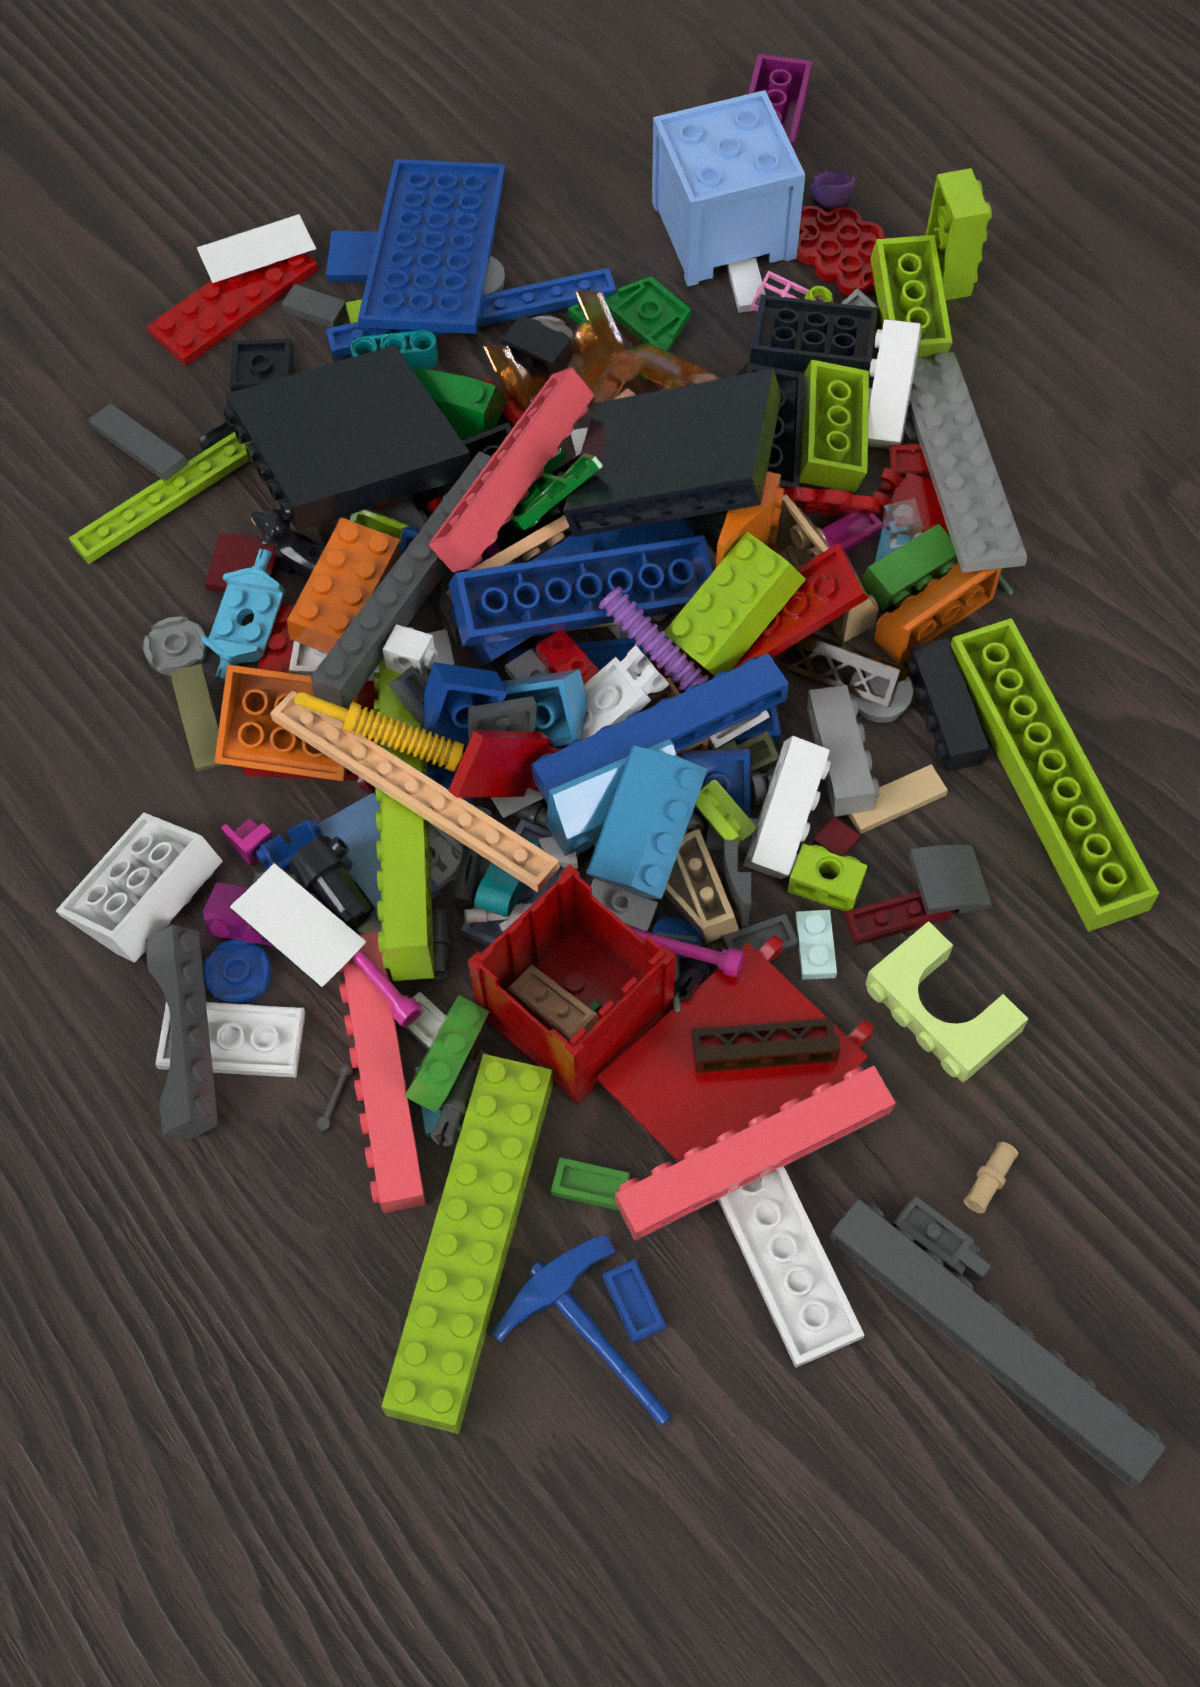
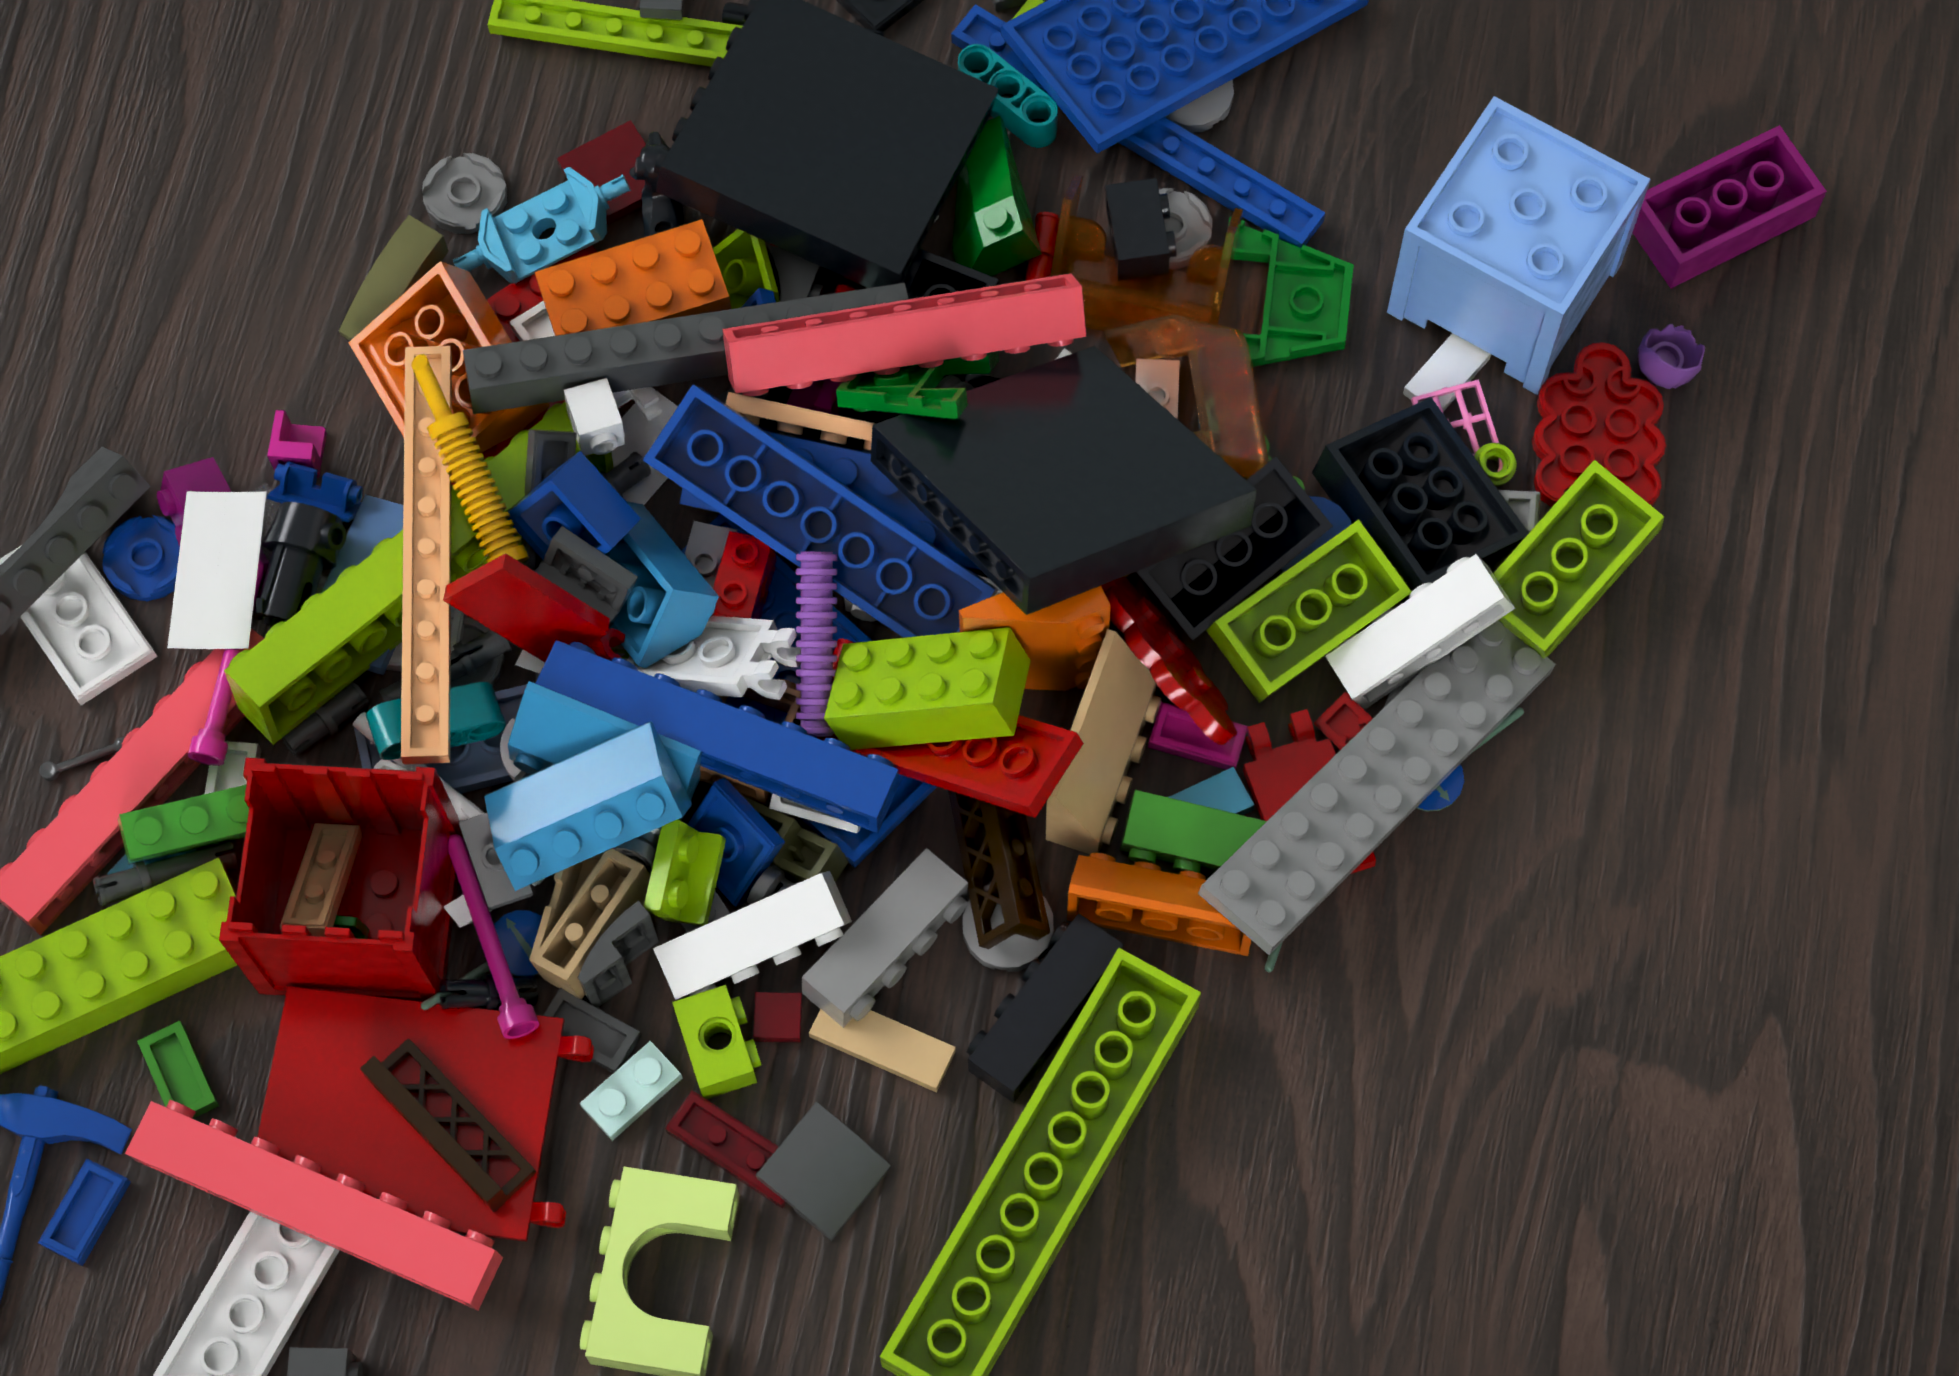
camera: 50 degrees right, 5 degrees up
(140, 885) = (161, 391): white slope -> none
(902, 522) = (1236, 783): clear brick -> none
(959, 226) = (1691, 539): lime brick -> none

